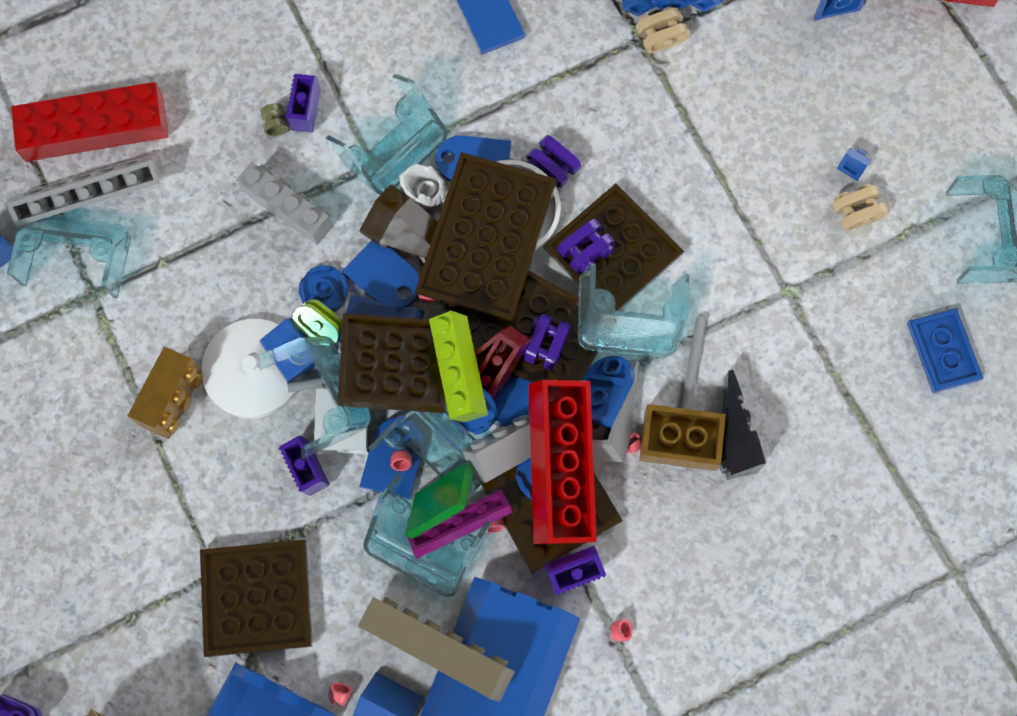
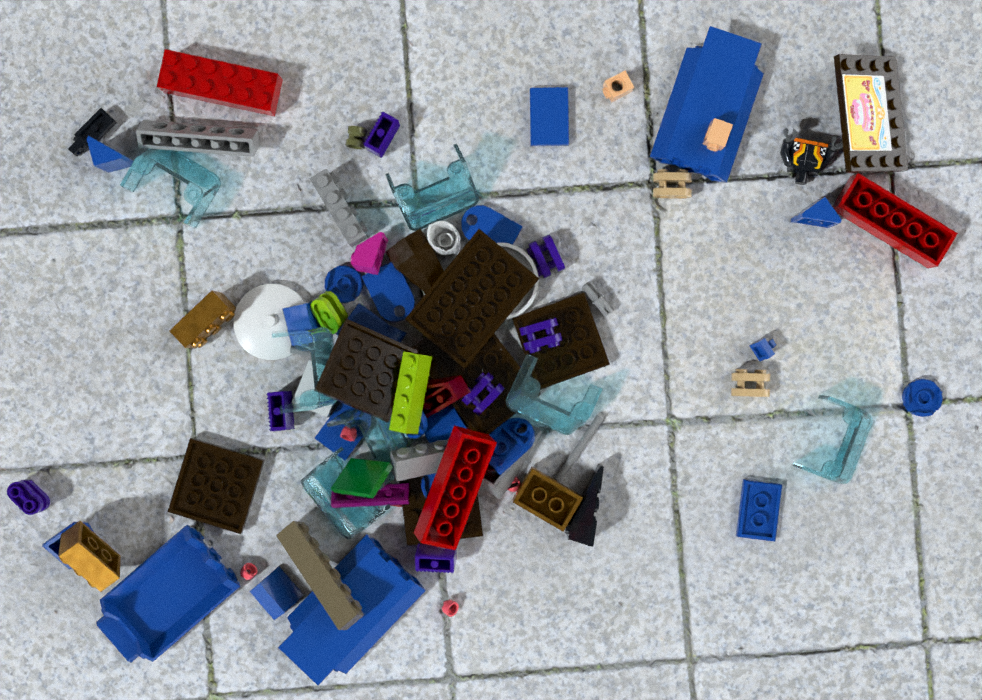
camera: 20 degrees right, 15 degrees up
(342, 240) = (370, 254): none -> dark pink slope
(634, 185) = (597, 298): none -> light grey axle

